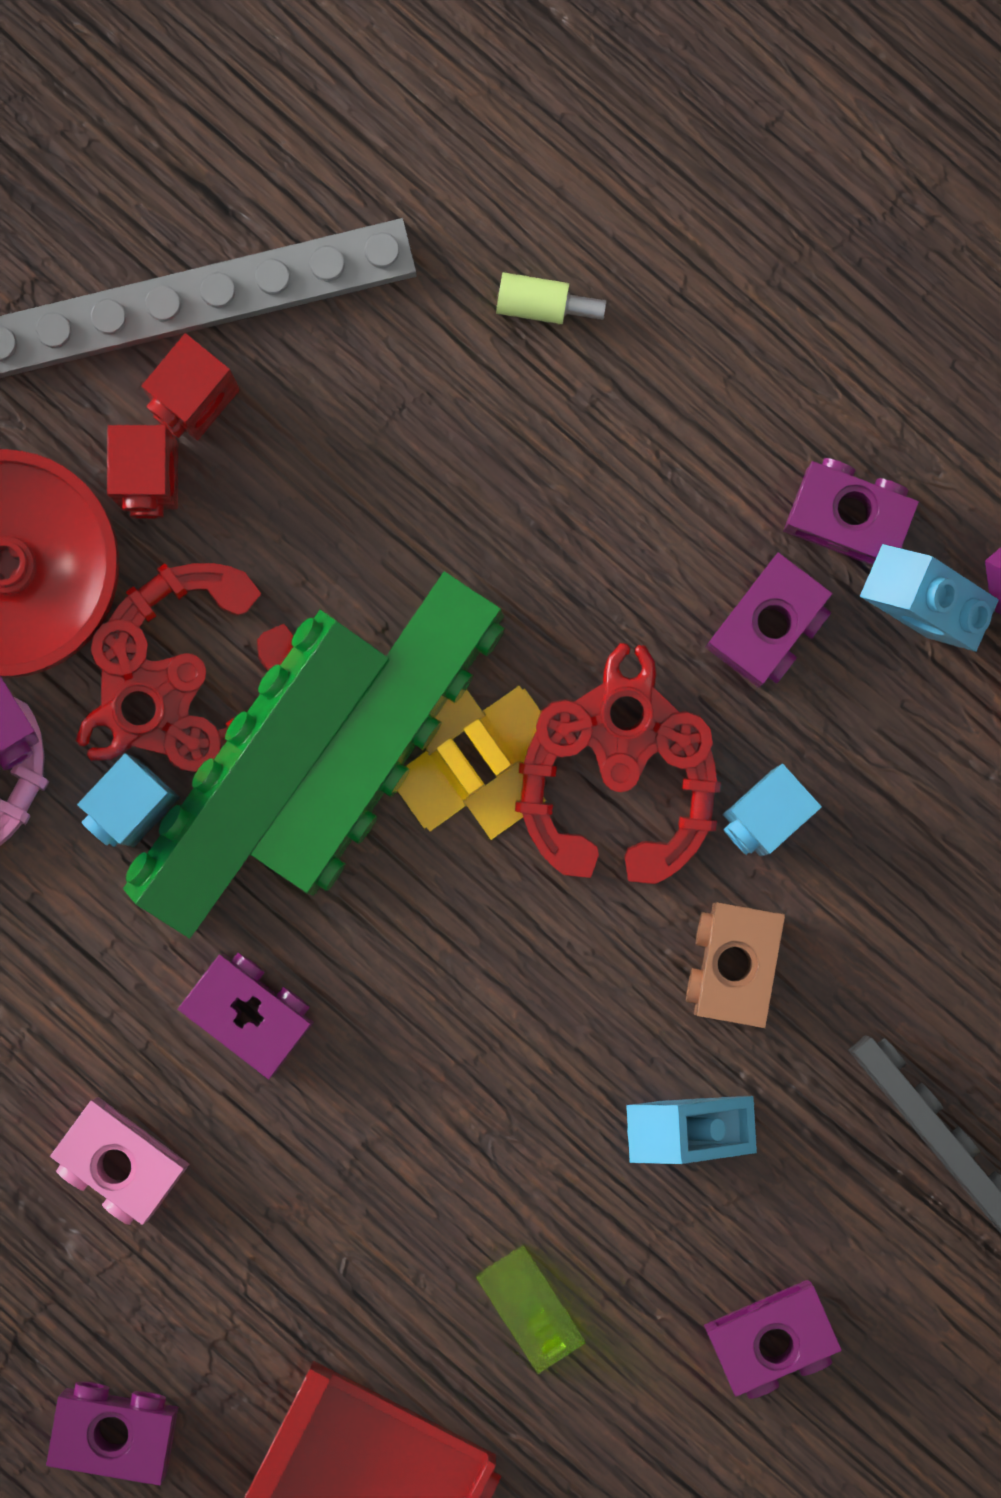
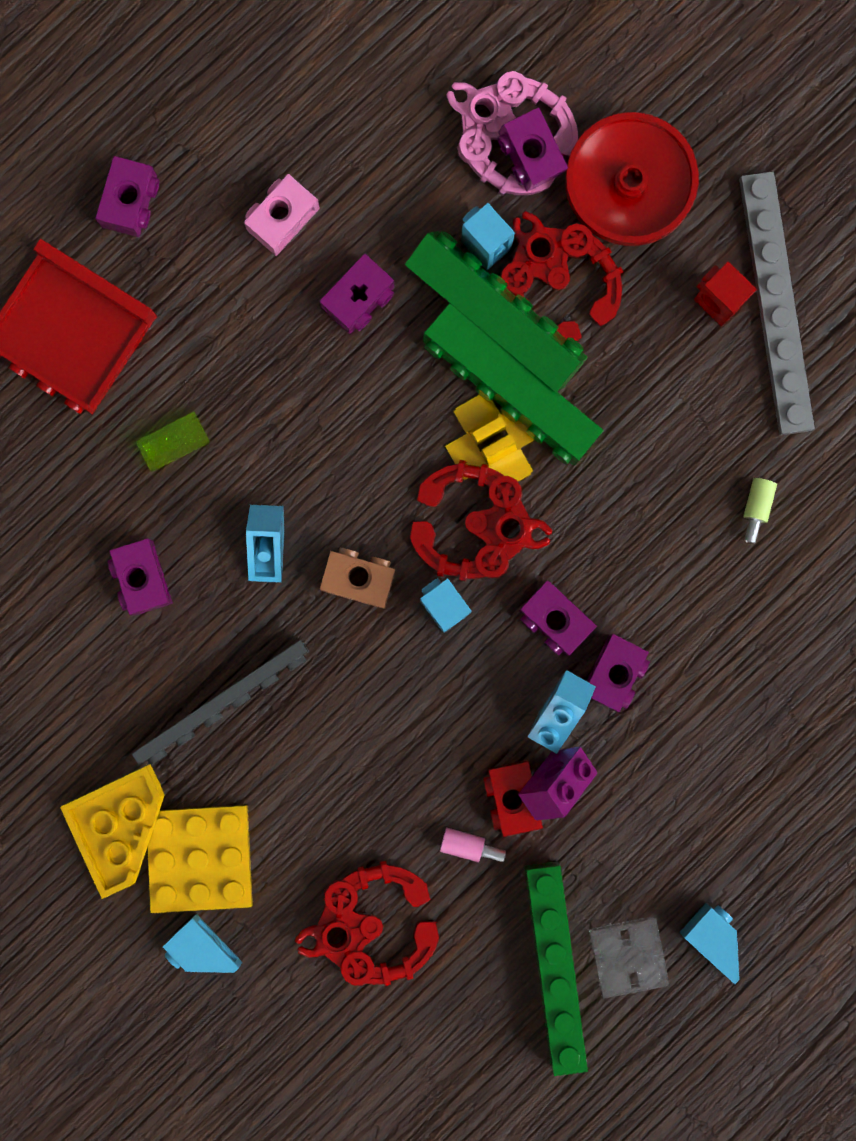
camera: 90 degrees right, 0 degrees up
(142, 469) = (679, 262): red brick -> none

